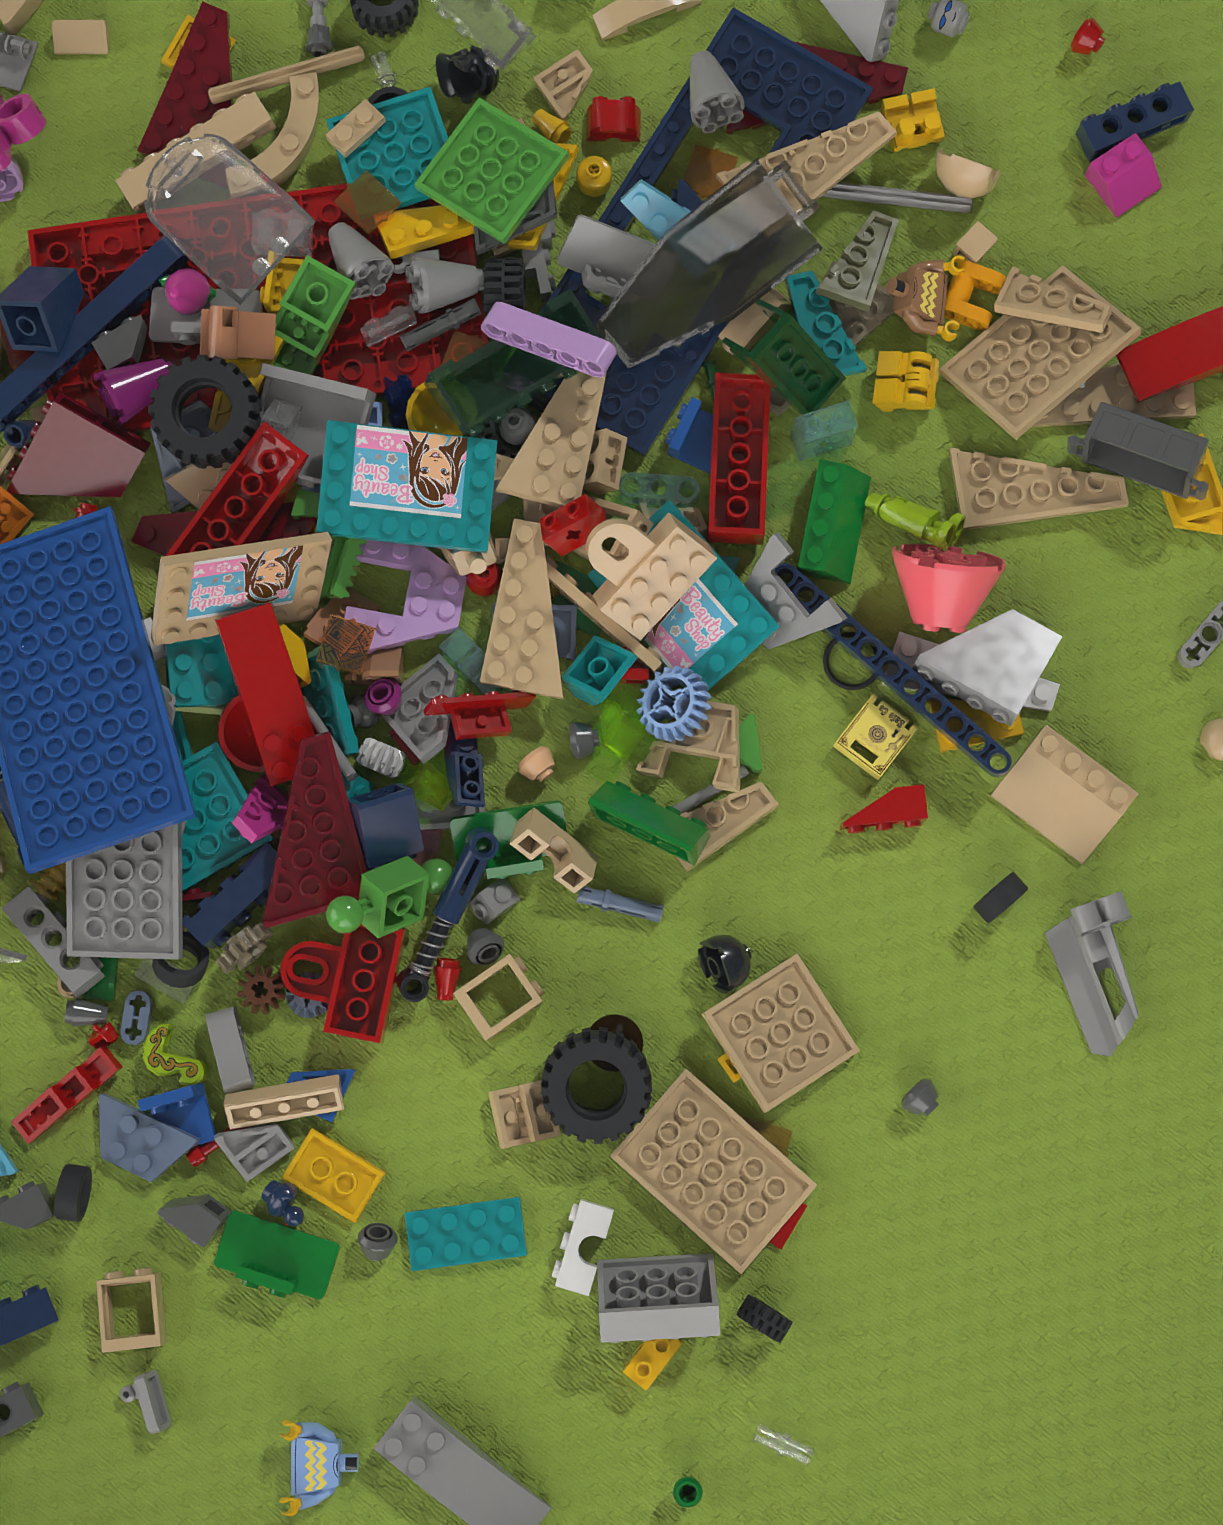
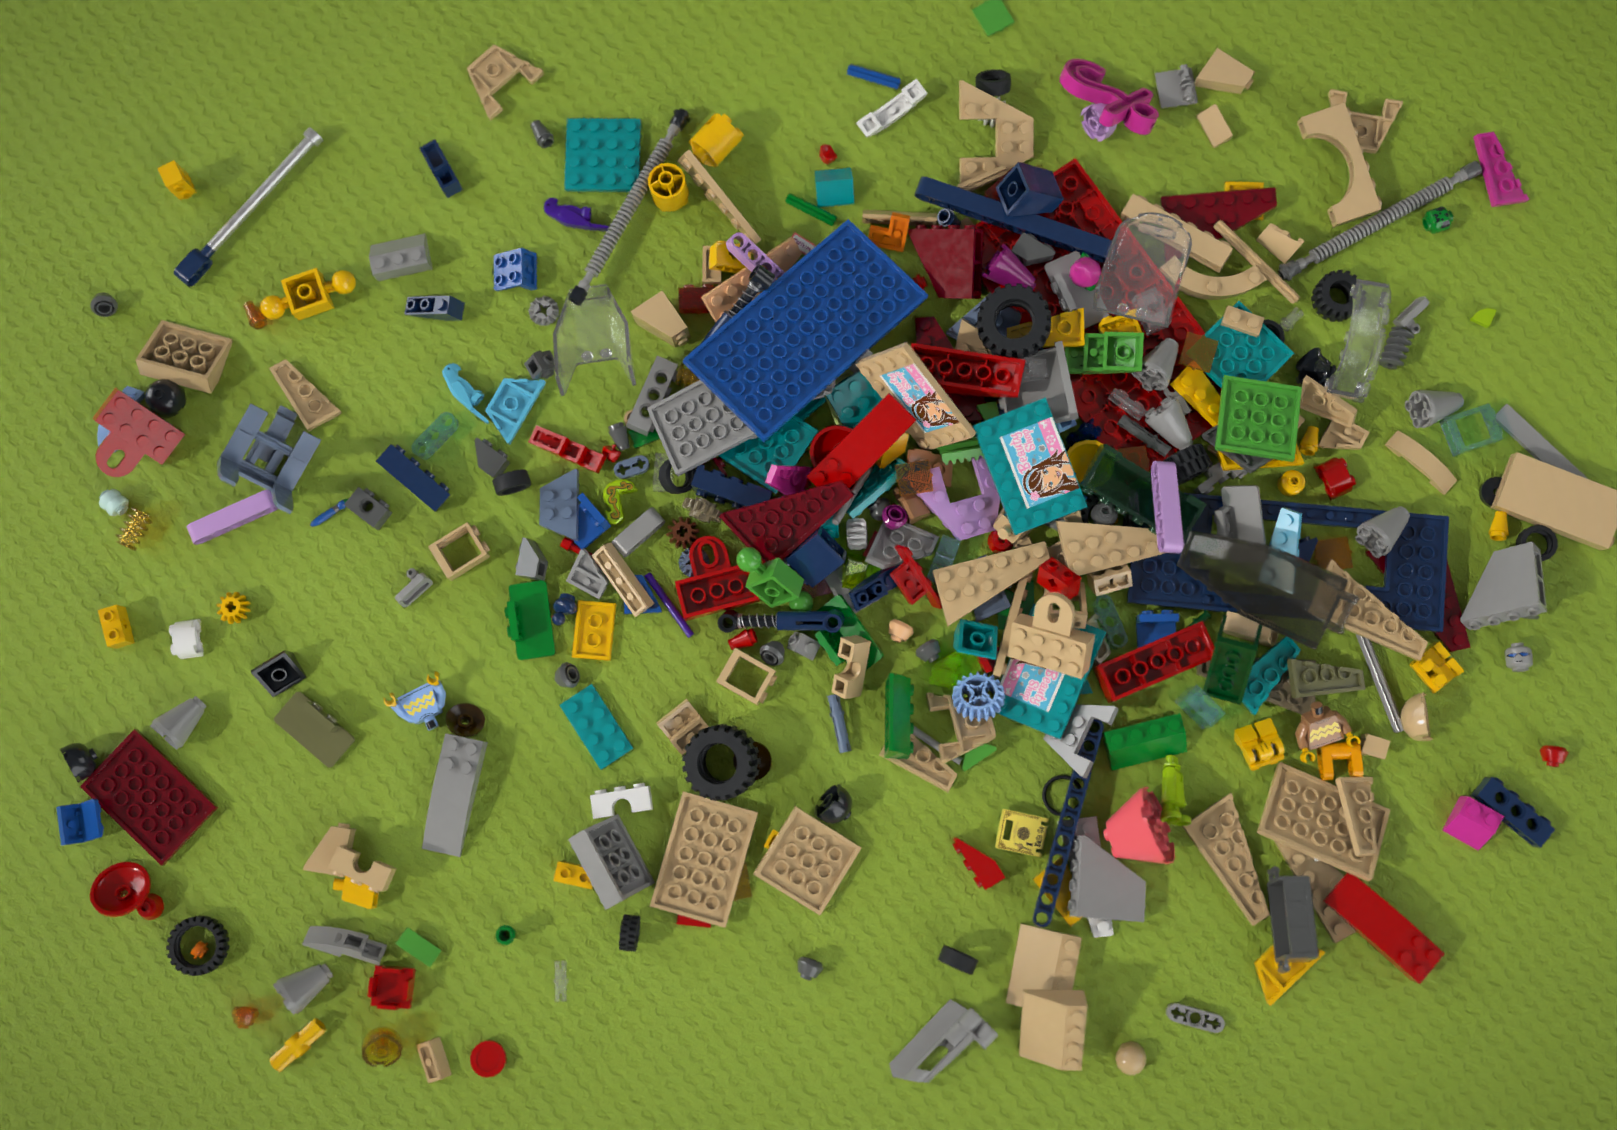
camera: 70 degrees right, 0 degrees up
(237, 333) = (1071, 314): nougat piece -> none
(276, 34) = (1279, 242): none -> tan slope
(350, 1056) = (669, 605): none -> dark purple bar
(359, 1408) = (467, 714): none -> dark brown dish
(515, 82) = (1317, 401): none -> tan wing
(1143, 815) = (1053, 1027): none -> tan slope

